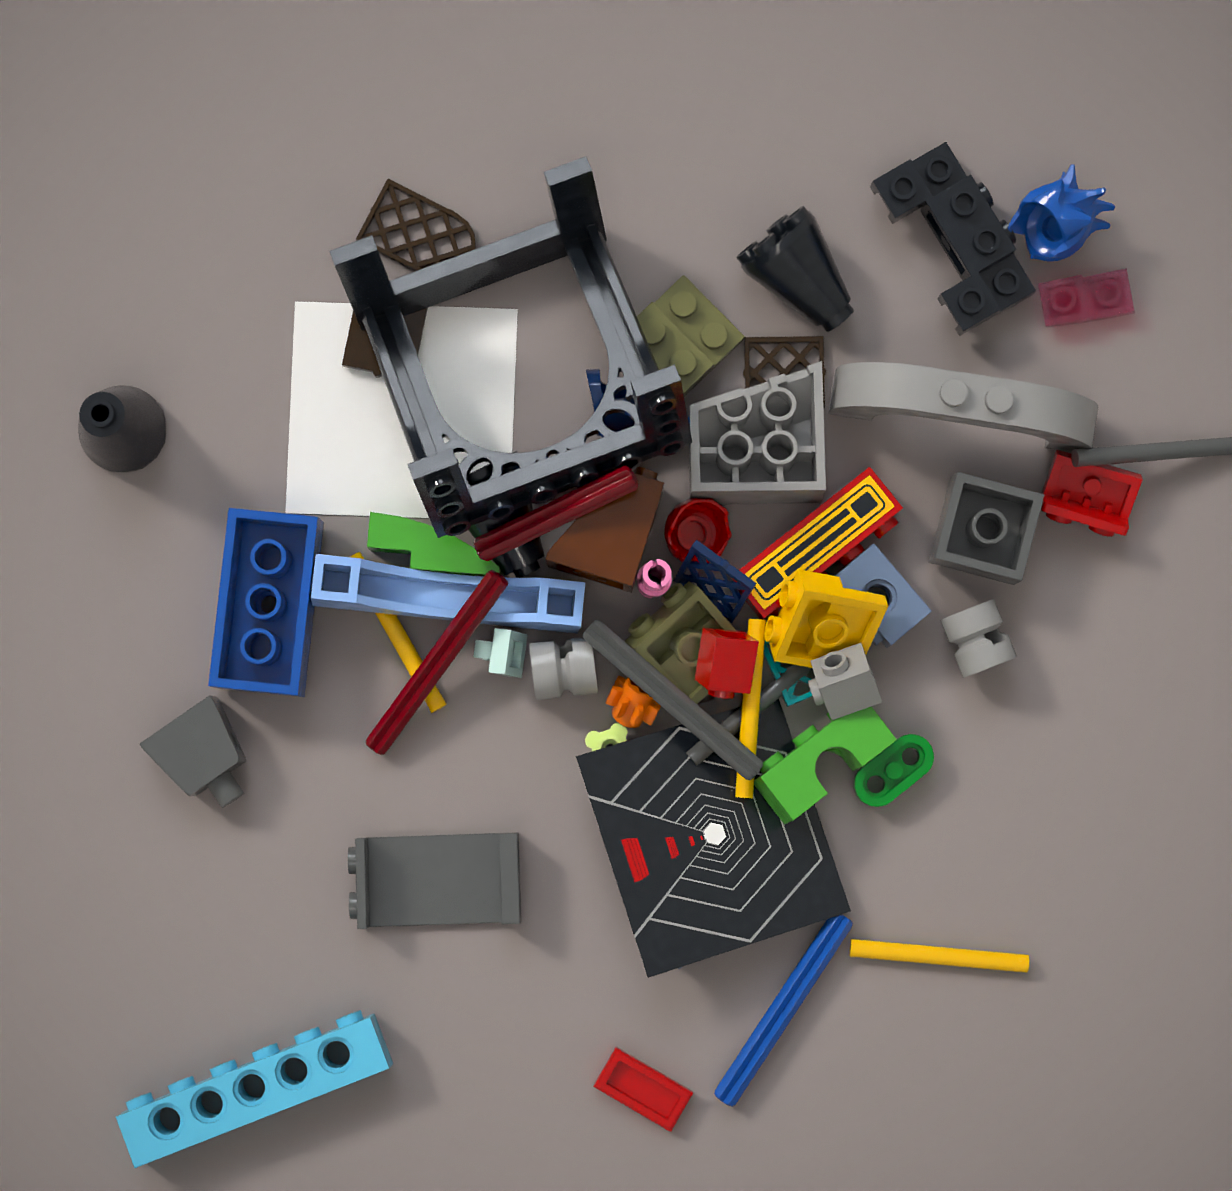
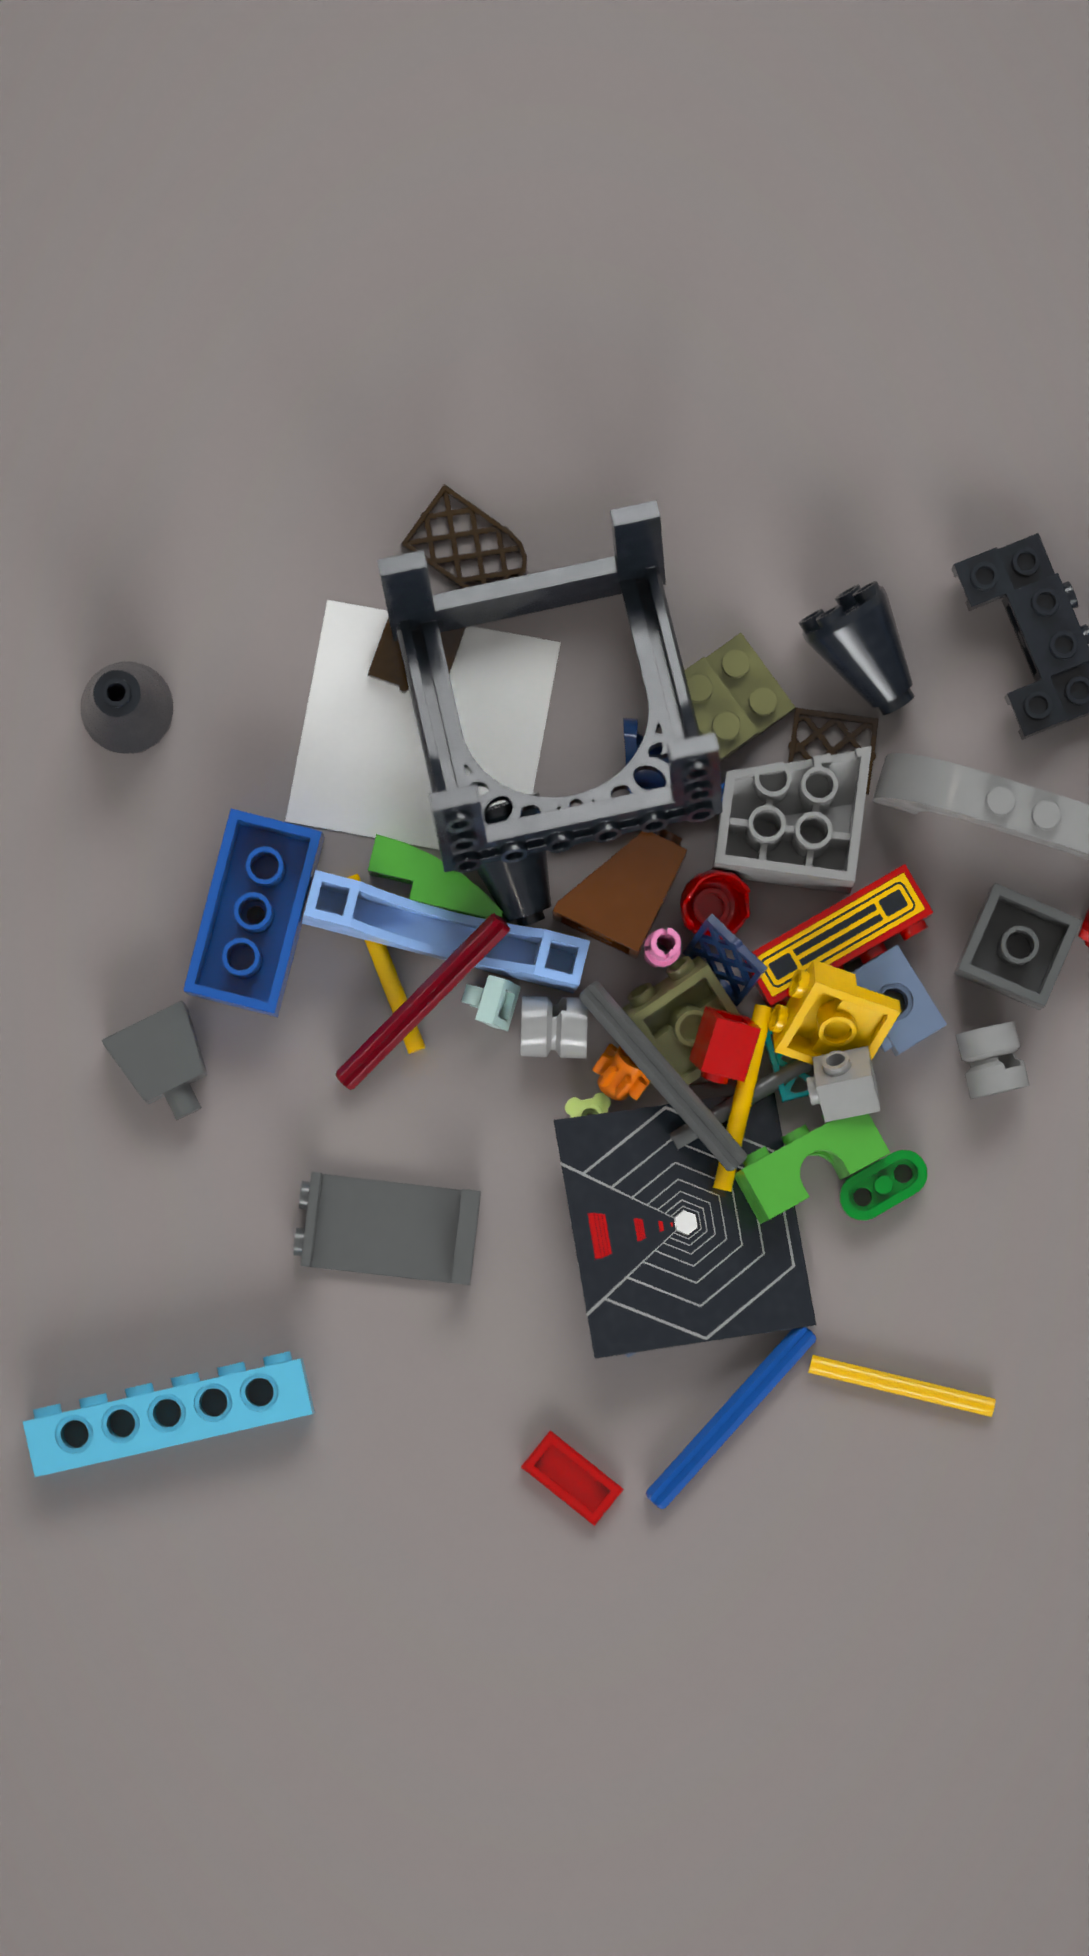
camera: 10 degrees right, 0 degrees up
(556, 513) = (570, 865): dark red axle -> none

